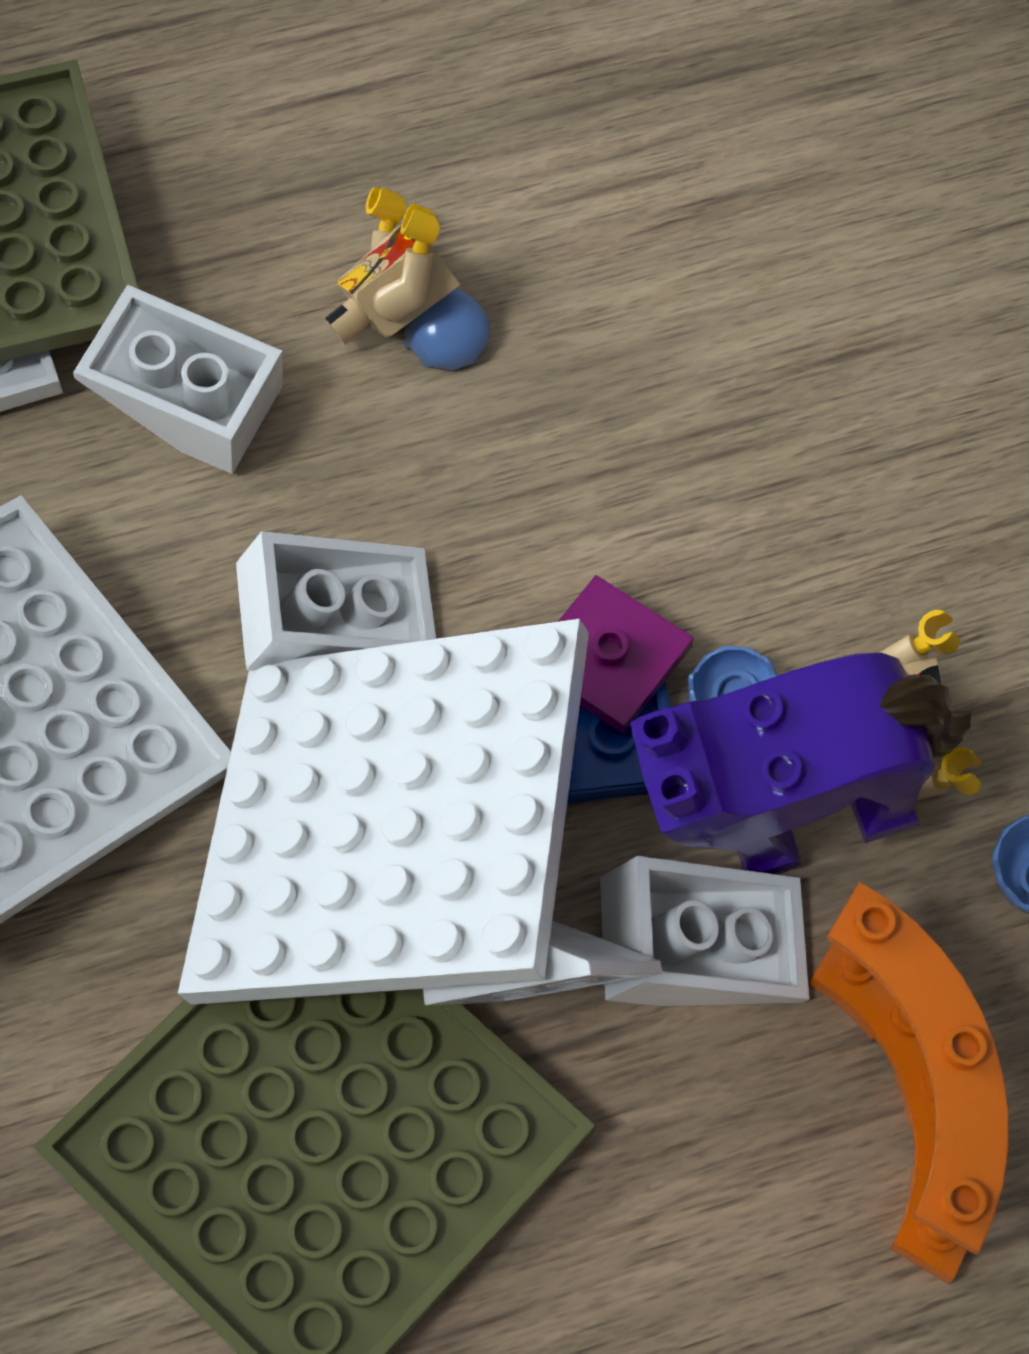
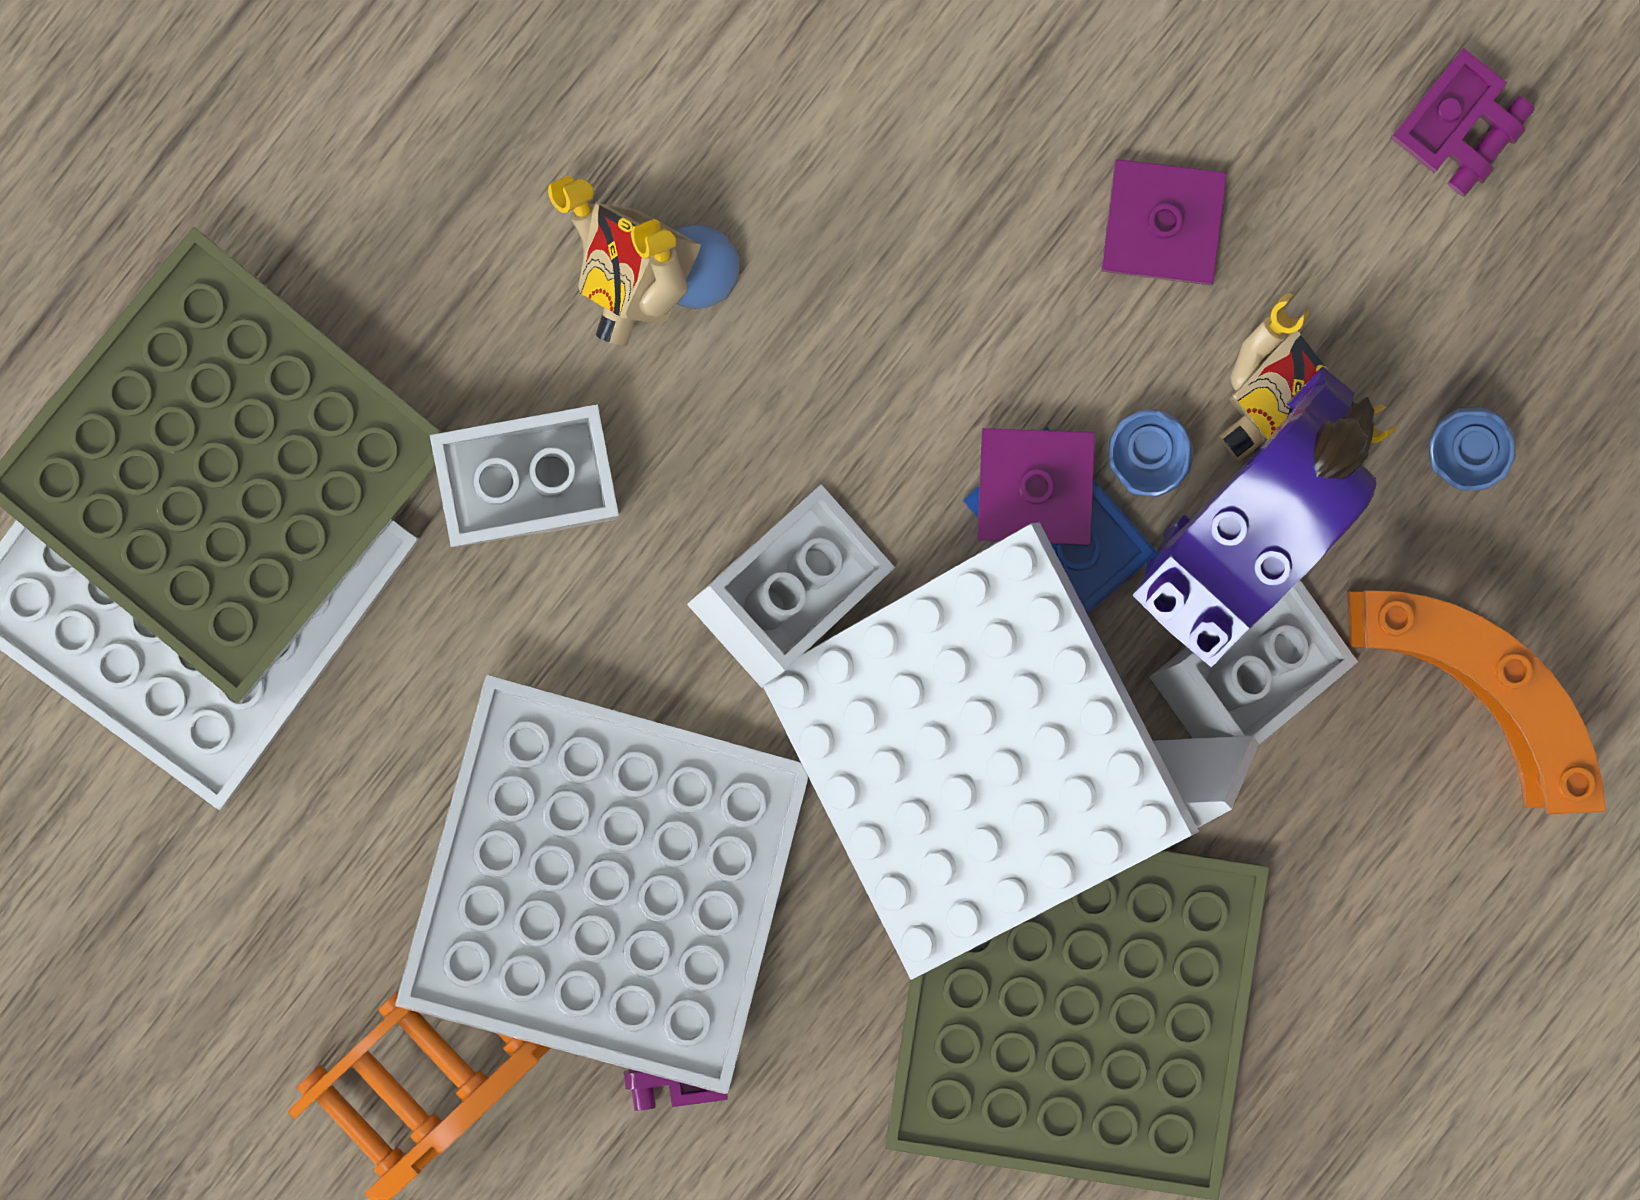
camera: 35 degrees left, 25 degrees up
(870, 527) = (1163, 222): none -> magenta plate

